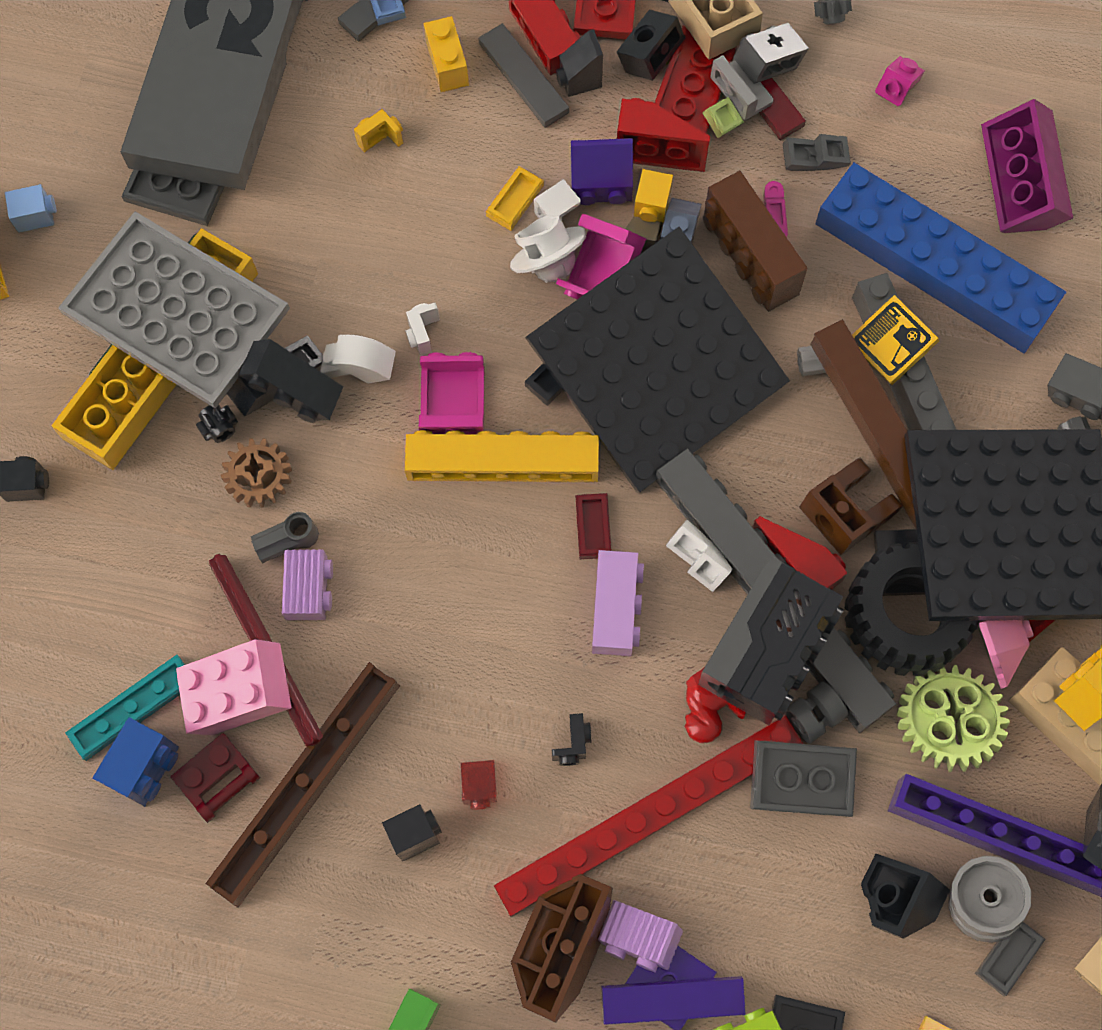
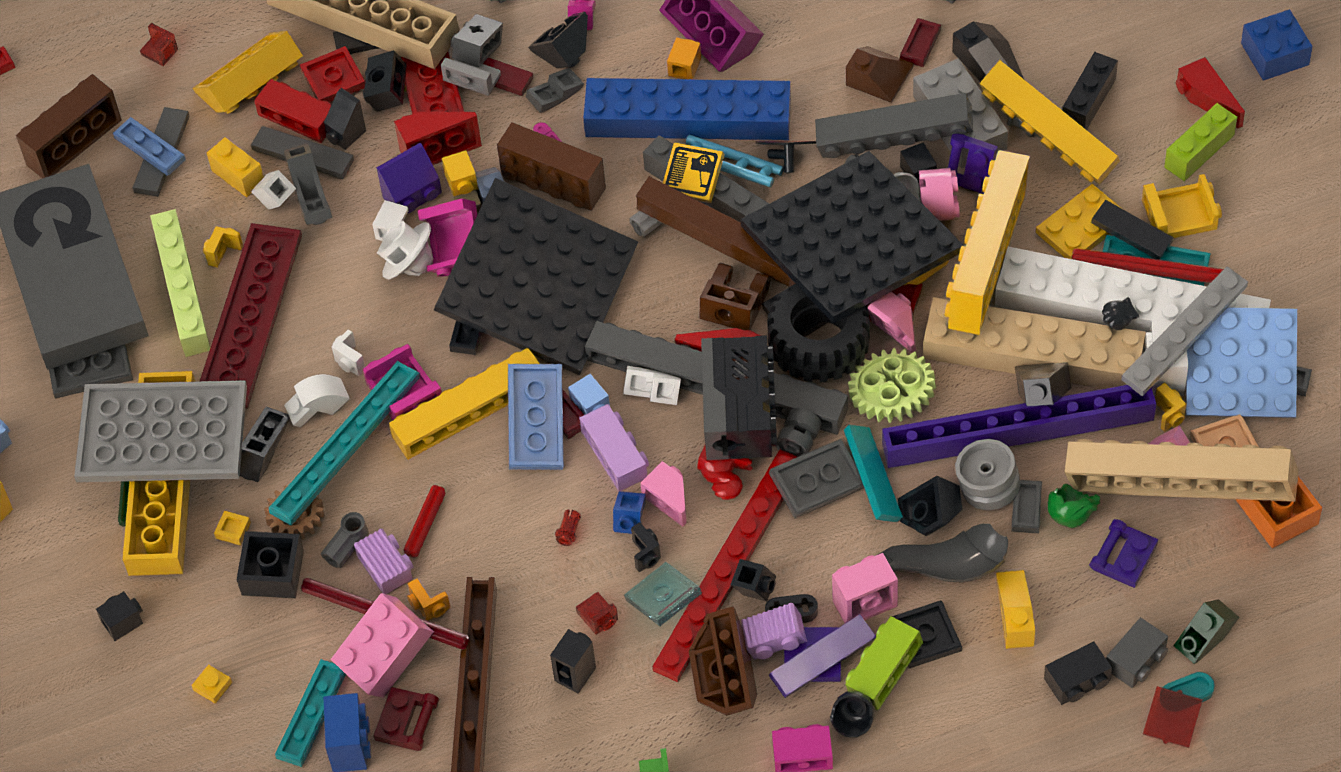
camera: 30 degrees left, 15 degrees down
(60, 611) = (211, 684): none -> yellow plate
(188, 451) = (232, 527): none -> yellow plate
(192, 519) = (270, 564): none -> black brick
(216, 423) = (241, 496): black gear -> none
(290, 381) = (281, 432): black brick -> none
(312, 150) = (180, 283): none -> yellowish green brick
(312, 652) = (428, 606): none -> light orange bracket
(348, 428) = (343, 443): none -> teal tile
(358, 222) = (252, 305): none -> dark red plate
(376, 563) = (424, 521): none -> red axle
(464, 101) = (273, 189): none -> white brick
(501, 117) = (307, 185): none -> dark grey arch
(511, 665) = (566, 533): none -> clear red pin
(514, 198) = (354, 236): yellow tile -> none
(557, 518) = (535, 417): none -> medium blue tile
(557, 808) = (662, 594): none -> clear light blue tile
(584, 686) = (628, 511): none -> blue bracket
(627, 529) = (588, 394): none -> light blue brick
(638, 690) = (666, 491): none -> bright pink slope
(658, 860) = (753, 580): none -> black brick
(683, 906) = (798, 601): none -> black beam
(723, 117) = (471, 101): yellowish green tile -> none
(766, 952) = (865, 588): none -> bright pink brick
(858, 106) = (564, 43): none -> black slope
(866, 810) = (872, 473): none -> teal tile
(893, 980) = (955, 560): none -> dark grey animal
(962, 348) = (744, 160): none -> medium azure bar
(971, 196) = (684, 58): none -> light orange brick
(1011, 364) = (786, 153): none -> black shield
(1059, 995) = (1070, 506): none -> green hair

